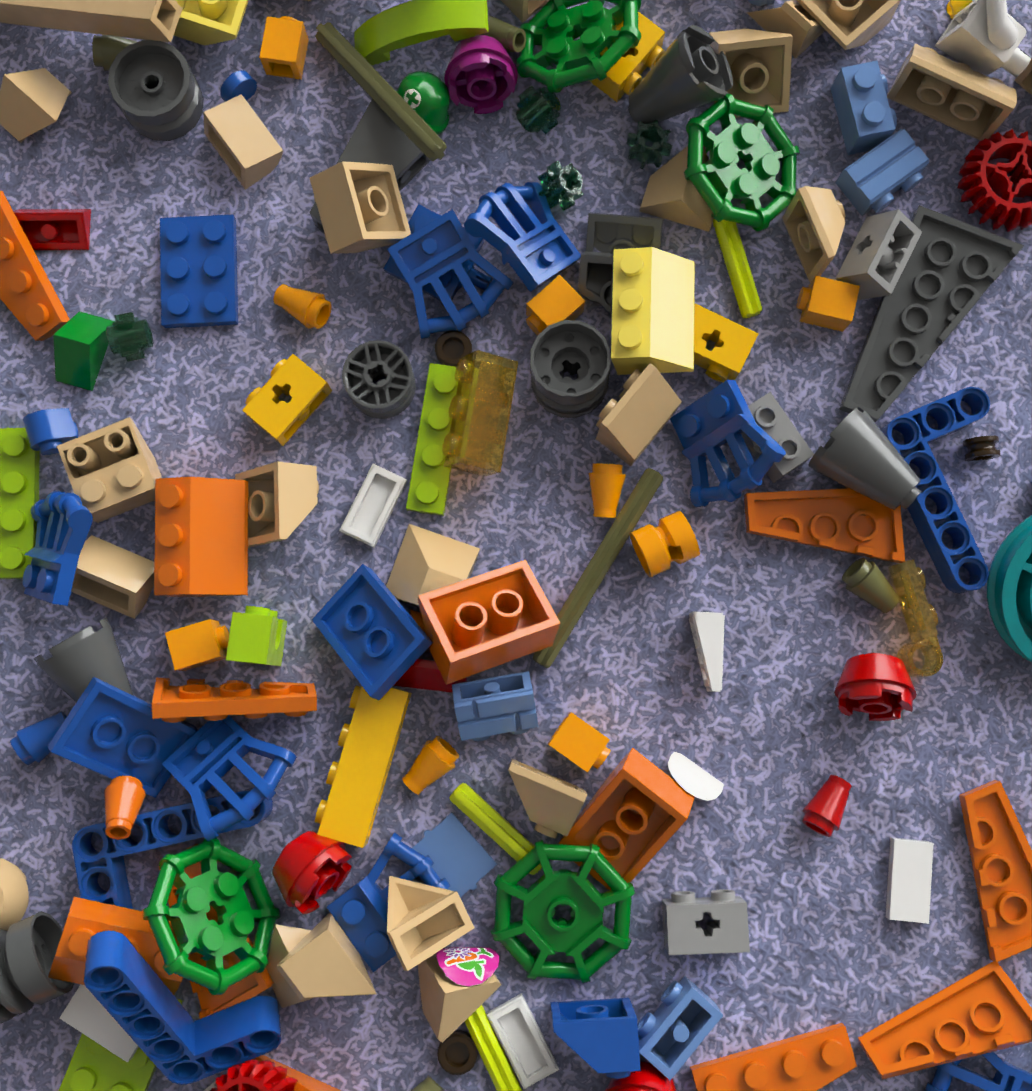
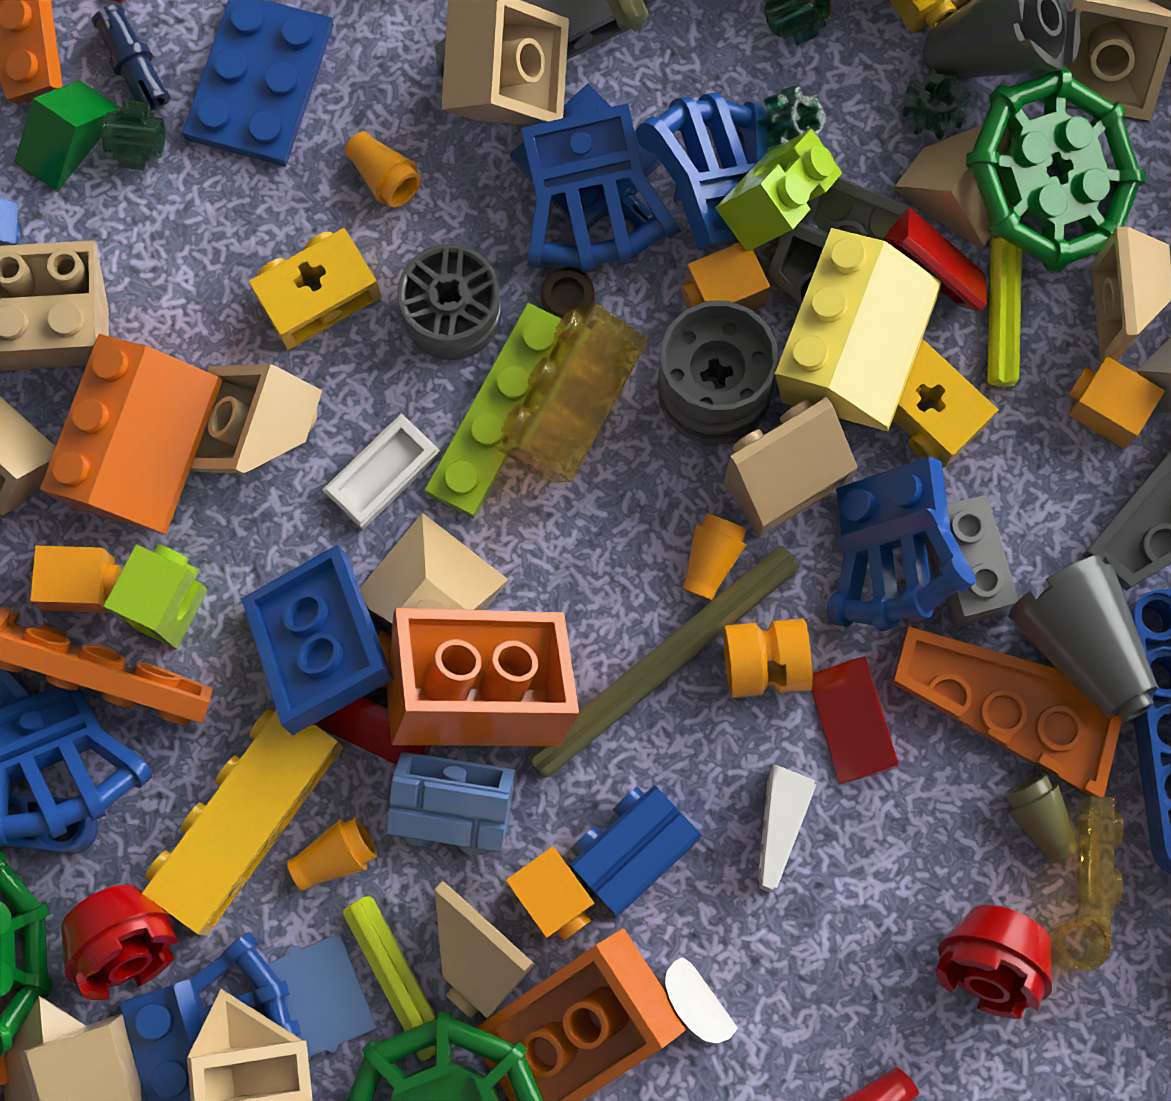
camera: 20 degrees right, 5 degrees down
(107, 284) = (130, 56): none -> dark blue pin
(570, 235) = (777, 190): none -> lime brick
(622, 695) = (633, 849): none -> blue brick
(680, 243) = (934, 253): none -> red slope
(731, 565) = (853, 721): none -> red slope

